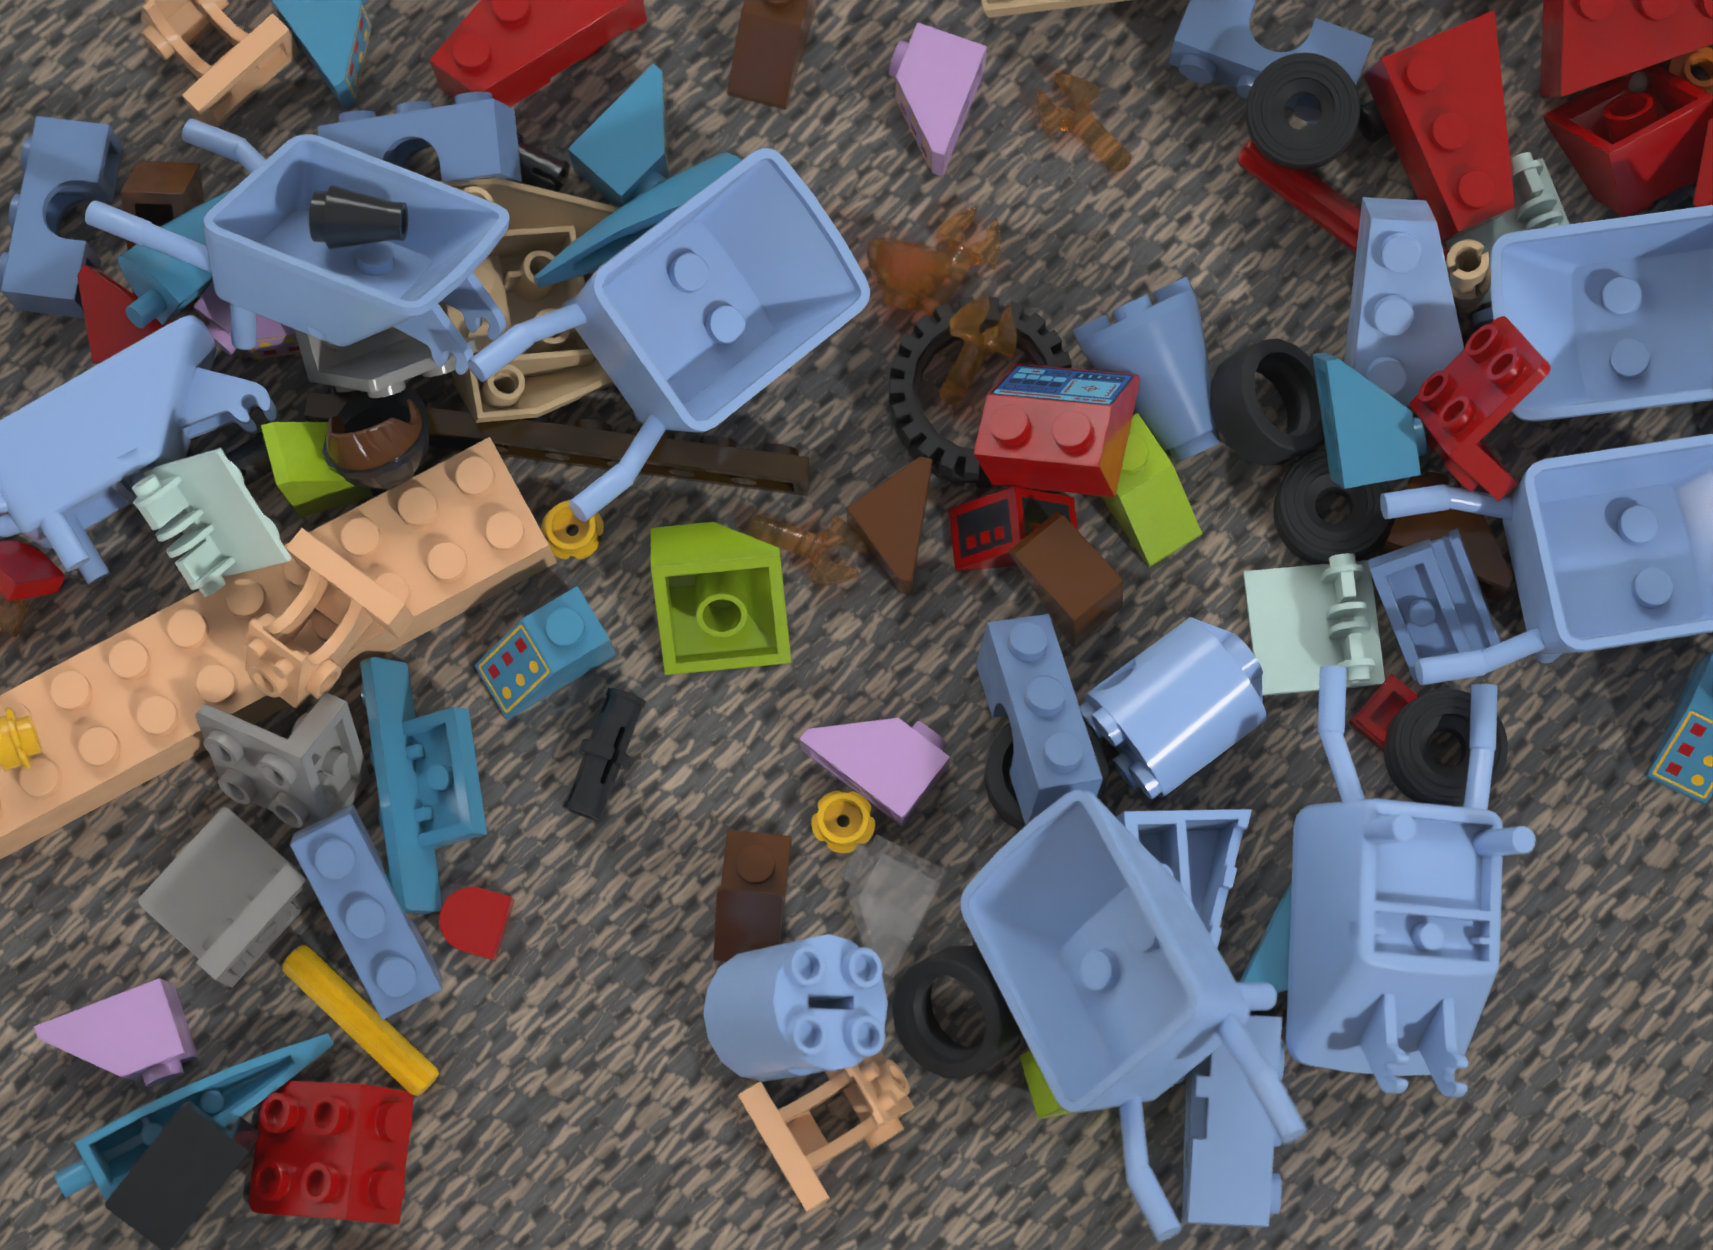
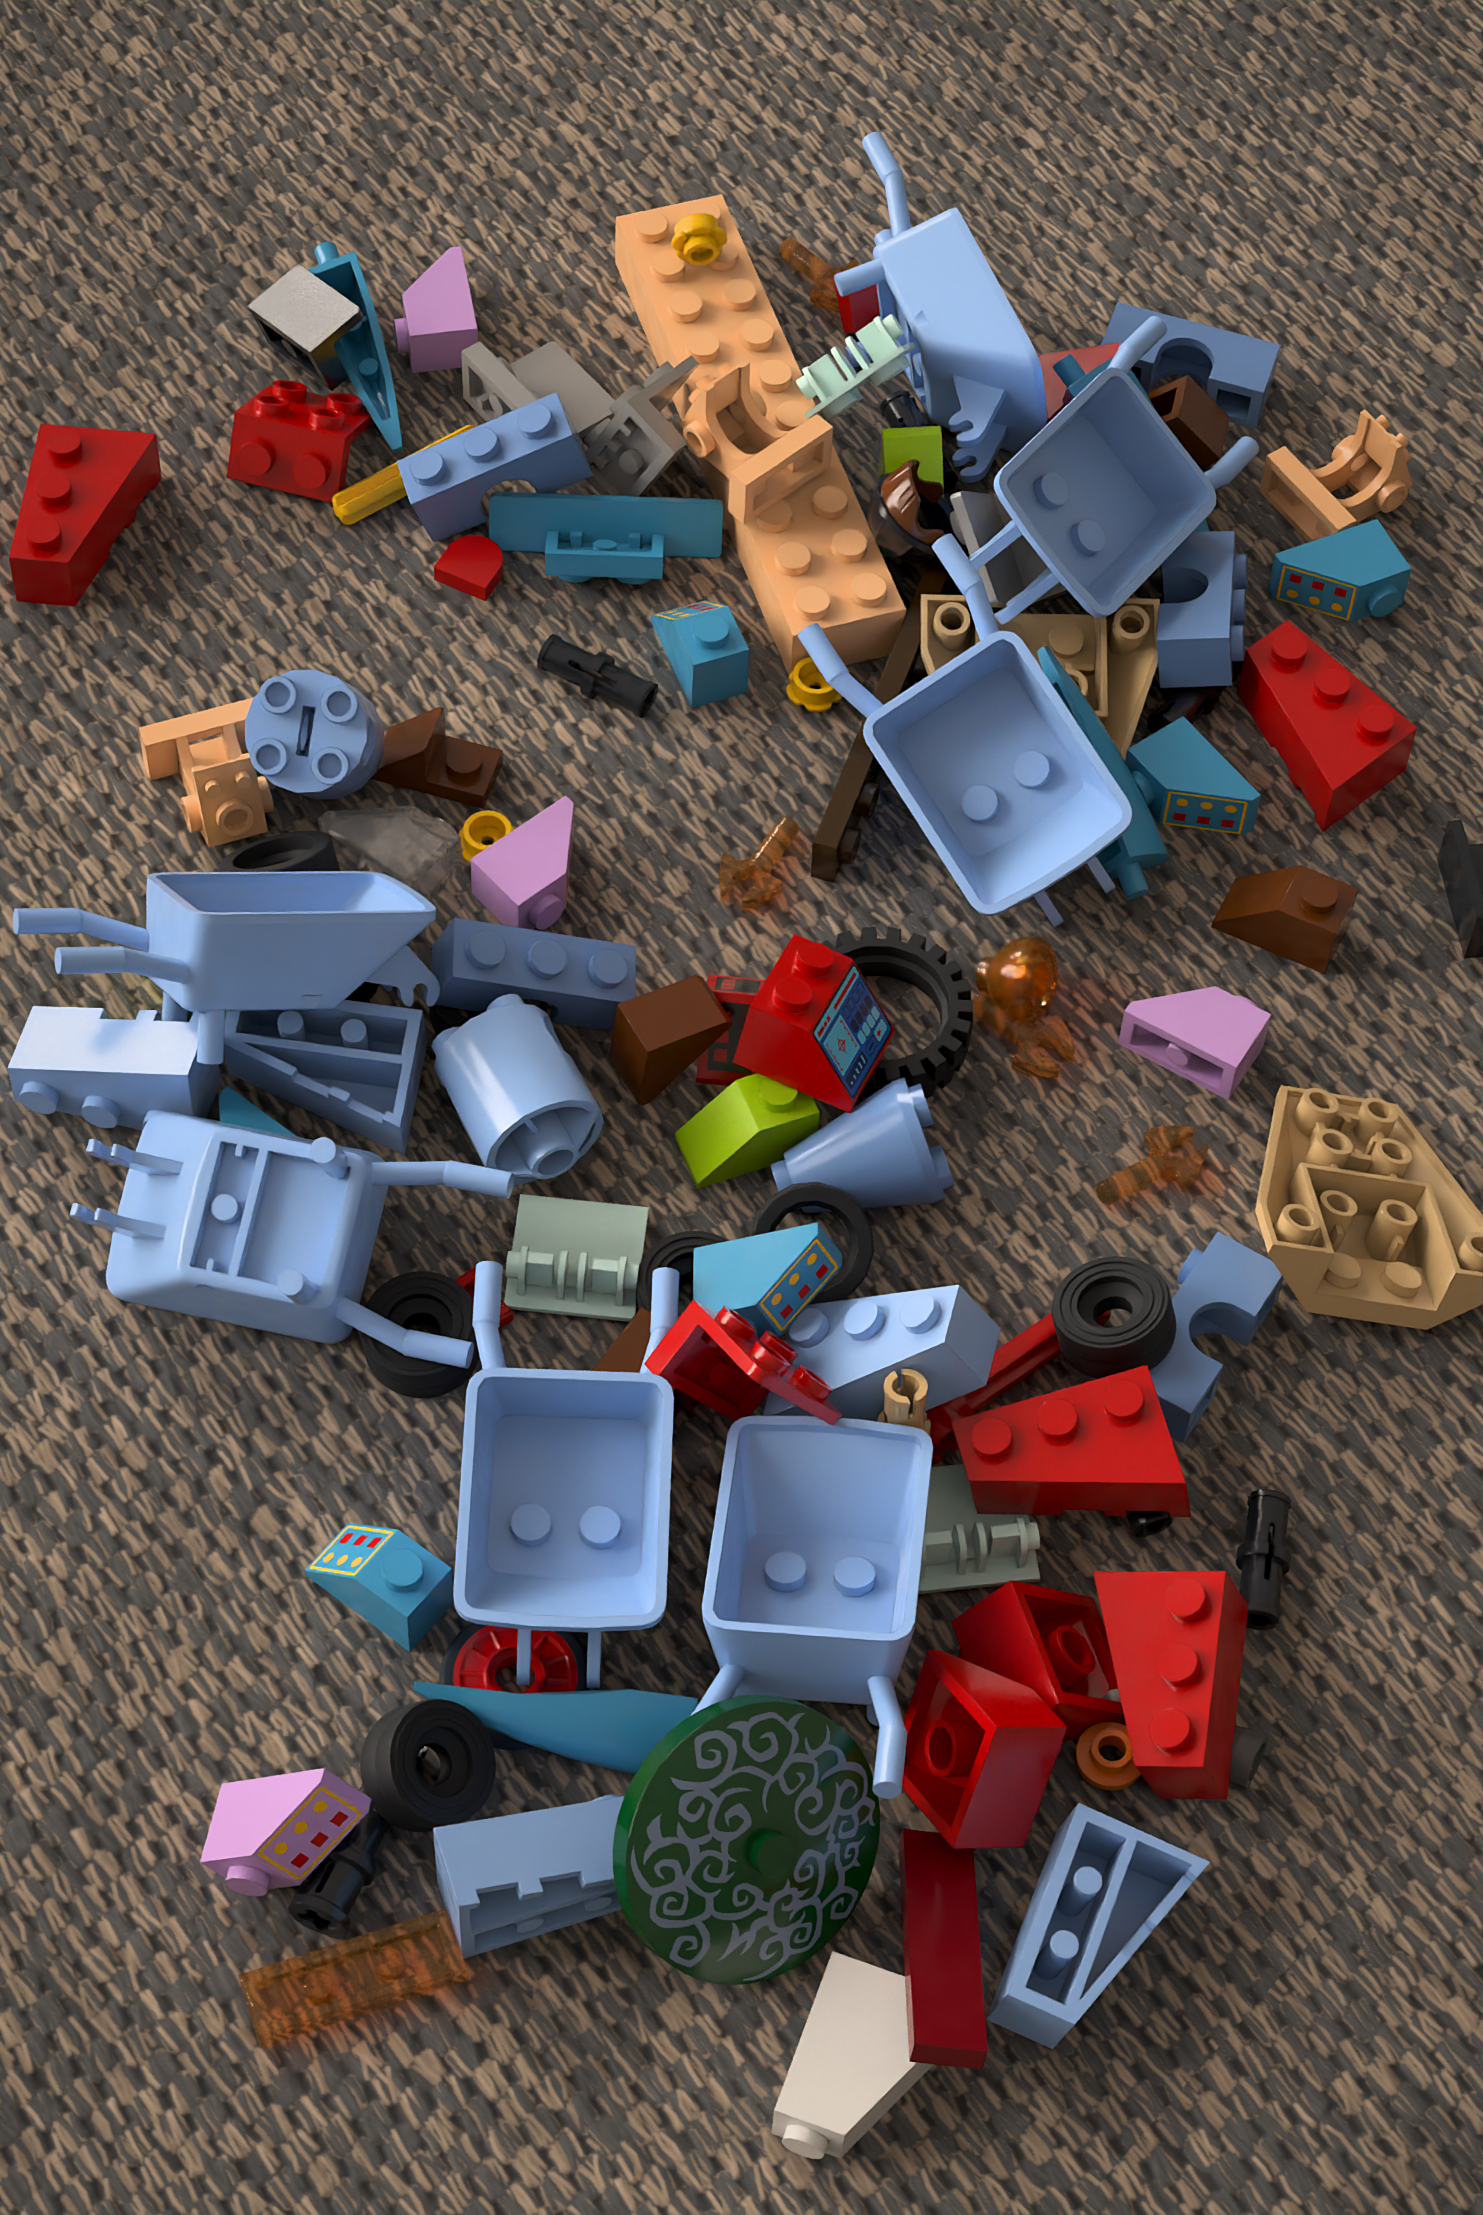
camera: 95 degrees right, 20 degrees down
(354, 218) = (1122, 506): black cone -> none
(717, 599) = (721, 763): lime slope -> none
(892, 521) = (752, 918): reddish brown slope -> none
(977, 346) = (921, 1010): clear orange bar -> none
(1433, 599) = (574, 1332): medium blue plate -> none

